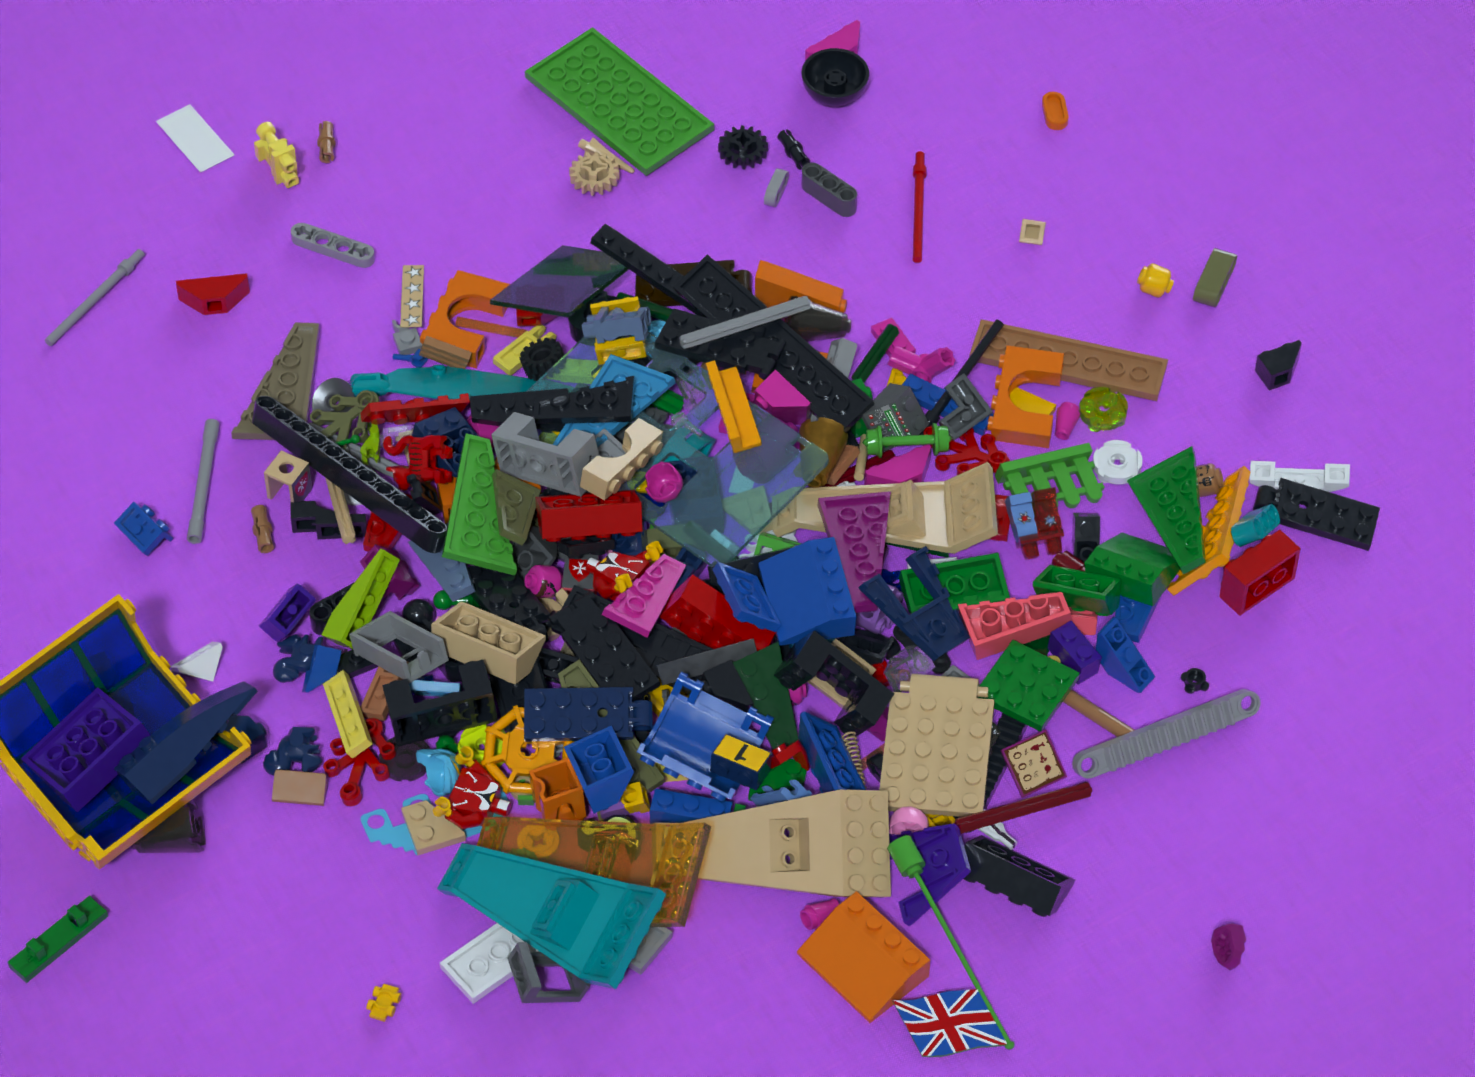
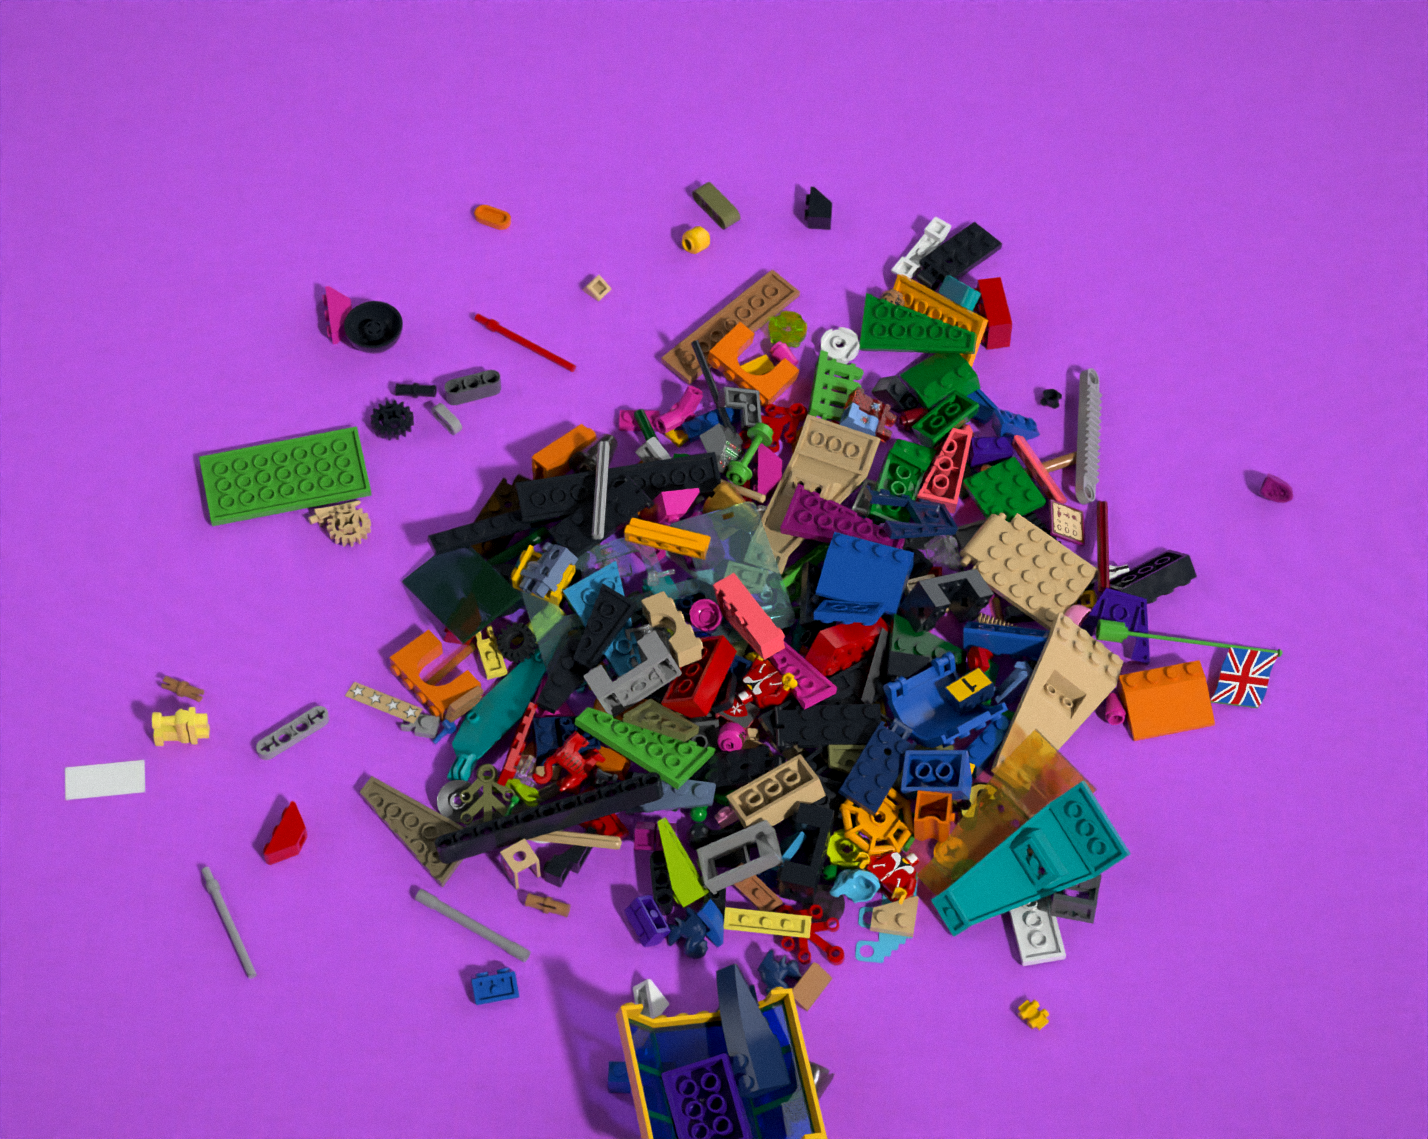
camera: 60 degrees left, 5 degrees up
(611, 446) = (648, 629): none -> clear hand
(676, 512) = (748, 617): none -> coral wedge
(1009, 576) = (913, 453): none -> green wing
(1081, 705) = (1037, 469): none -> coral slope

